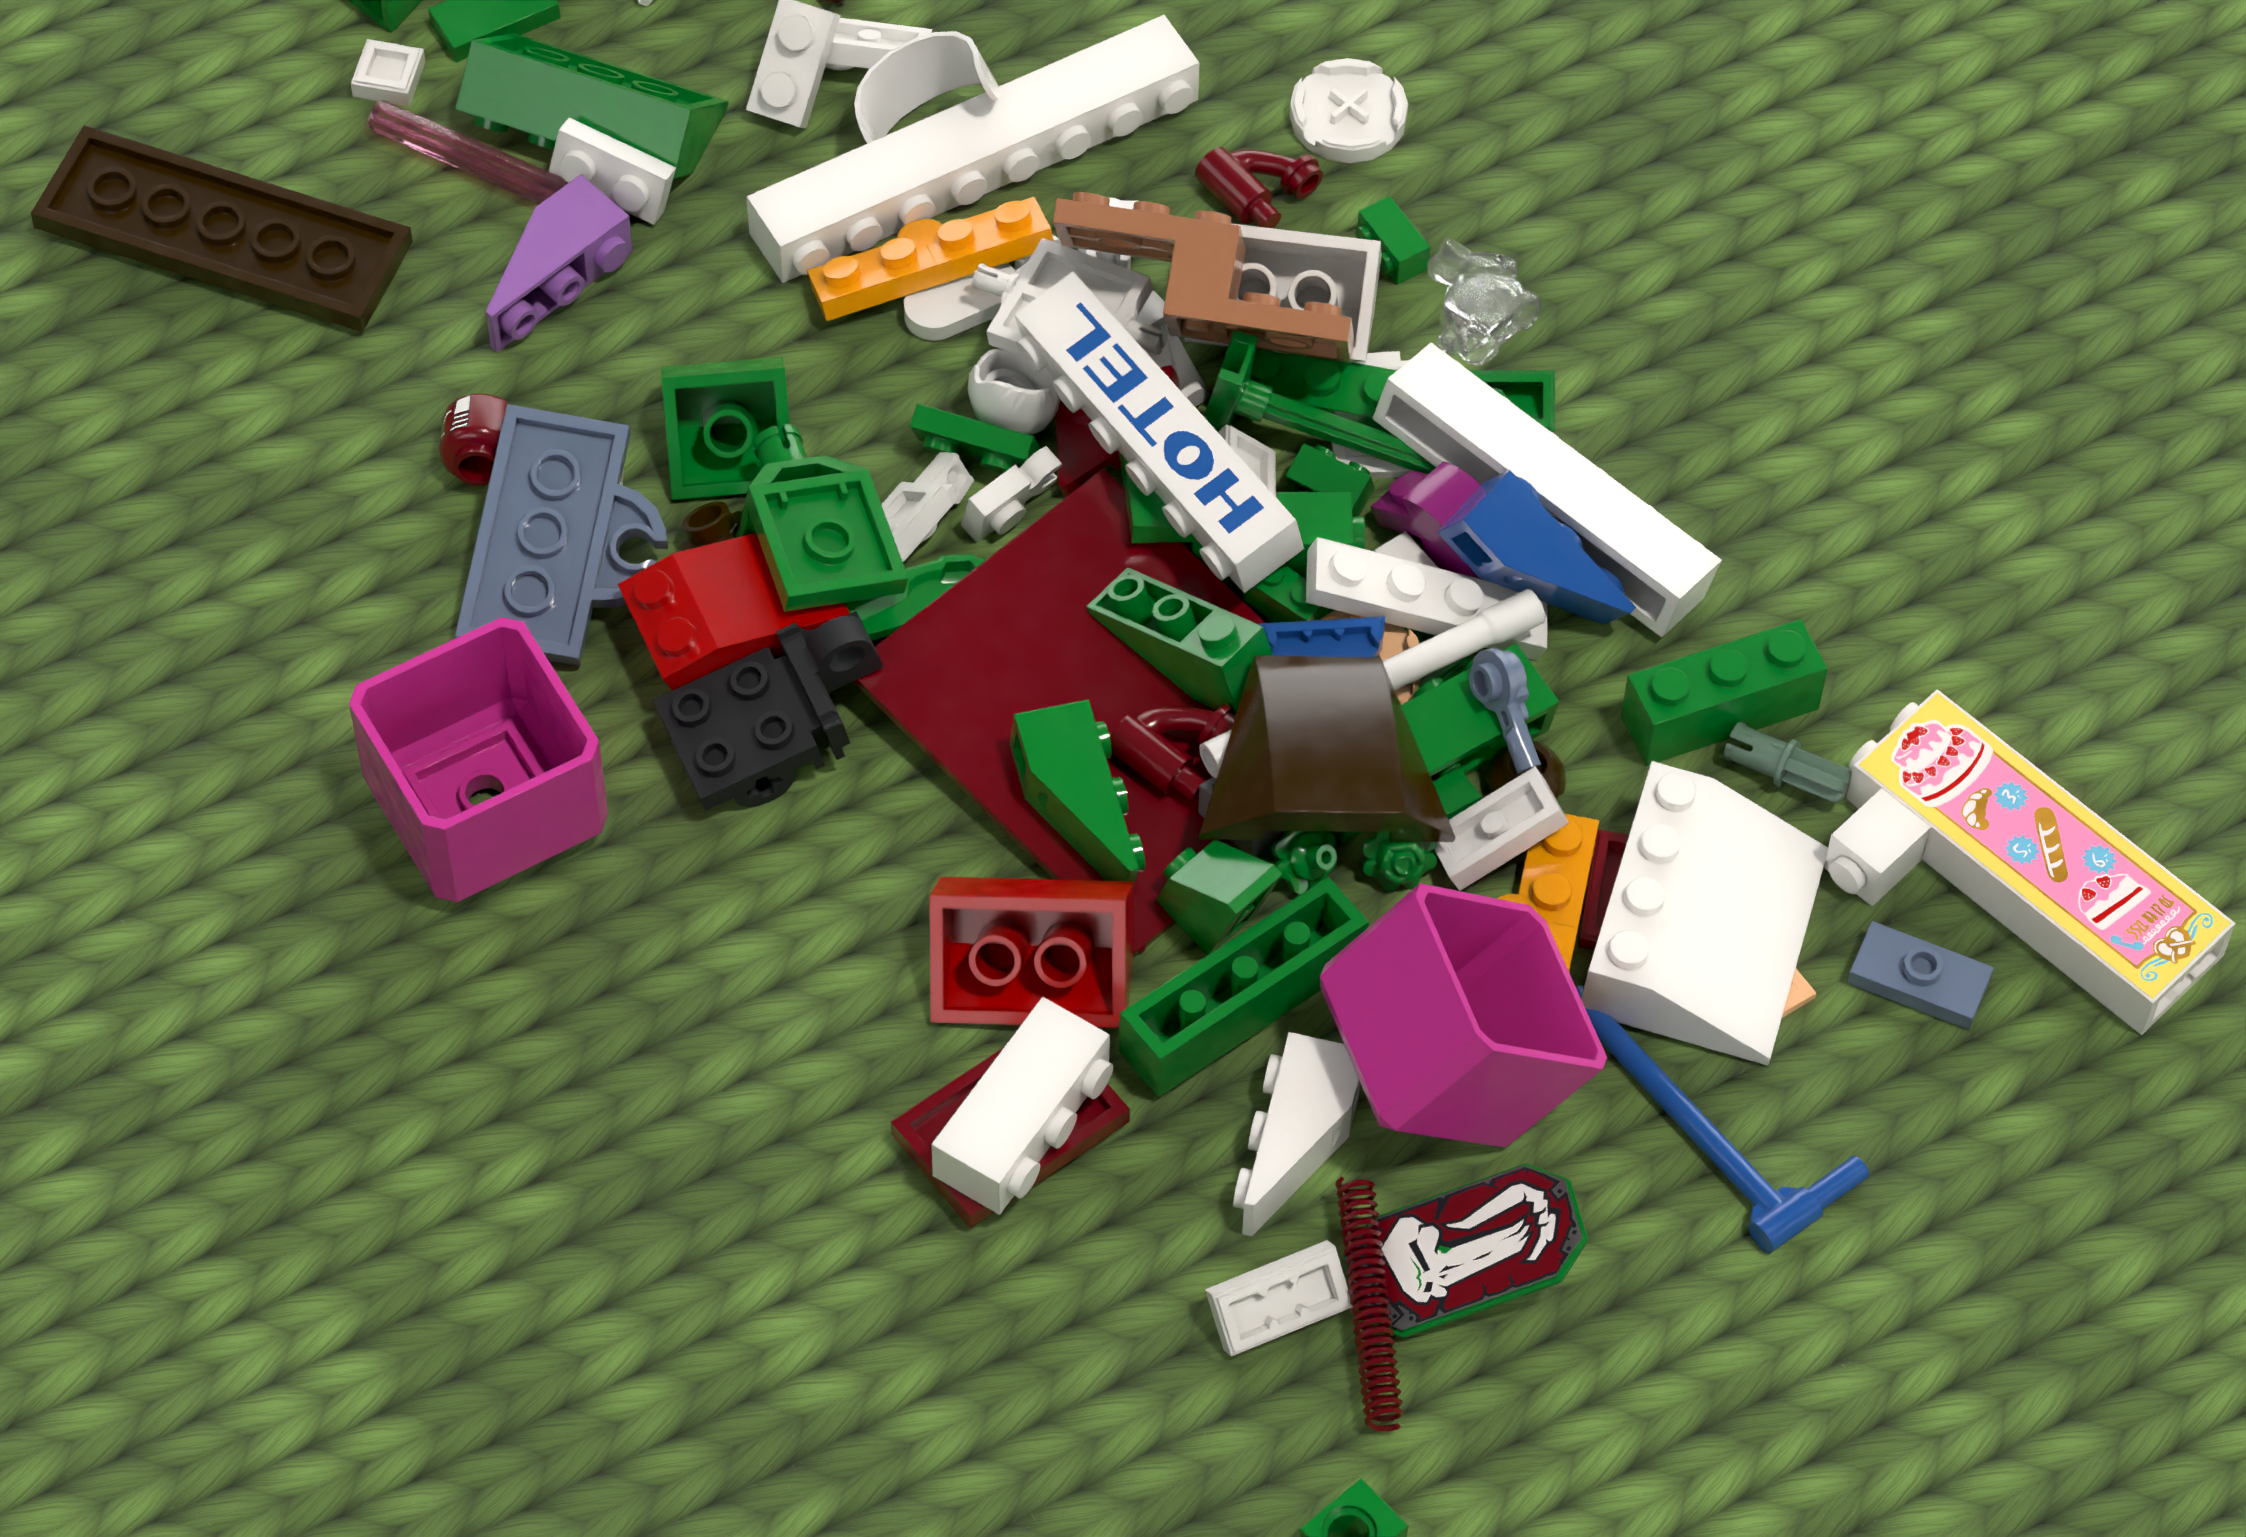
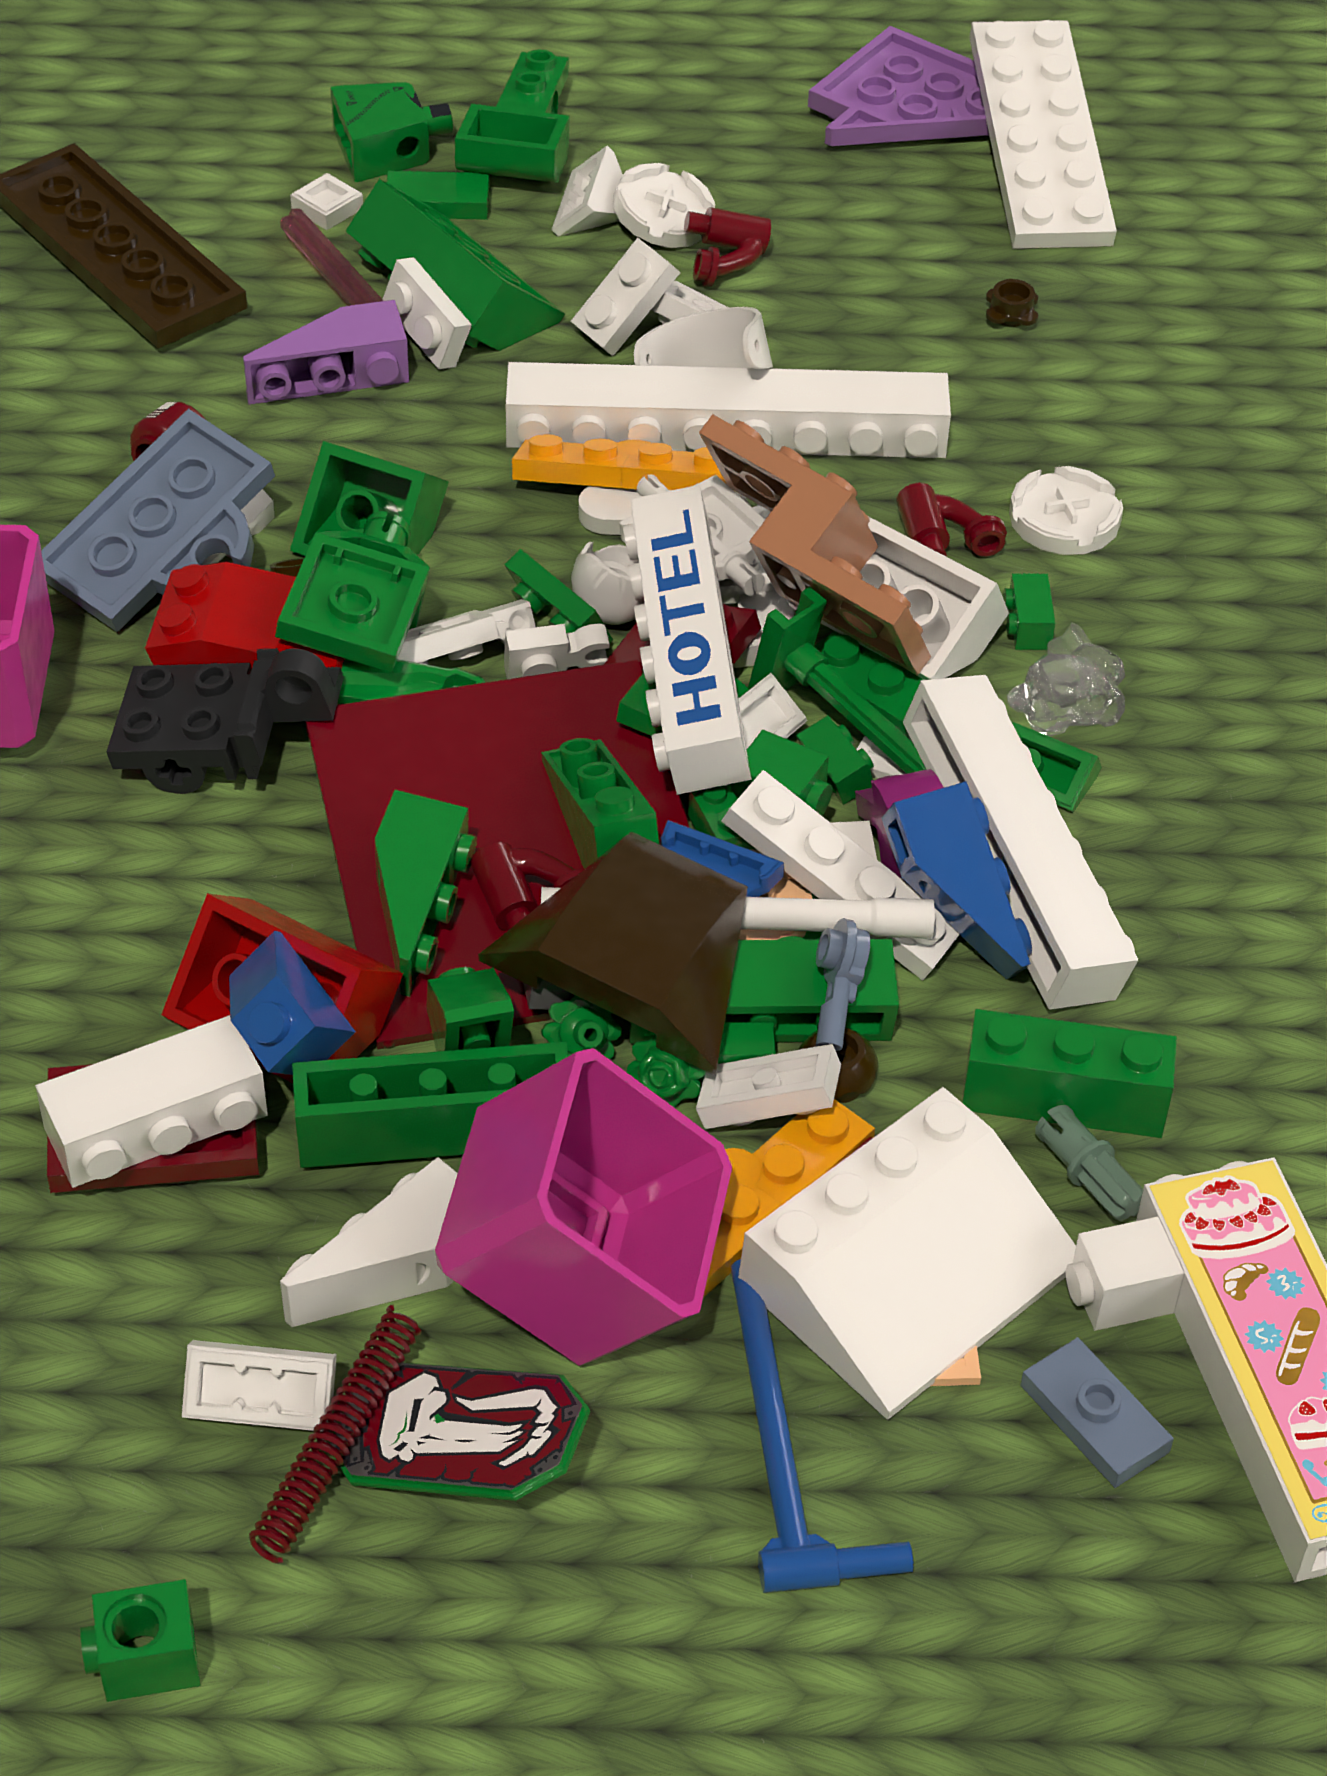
camera: 30 degrees right, 10 degrees down
(1070, 965) = (284, 1008): none -> blue slope

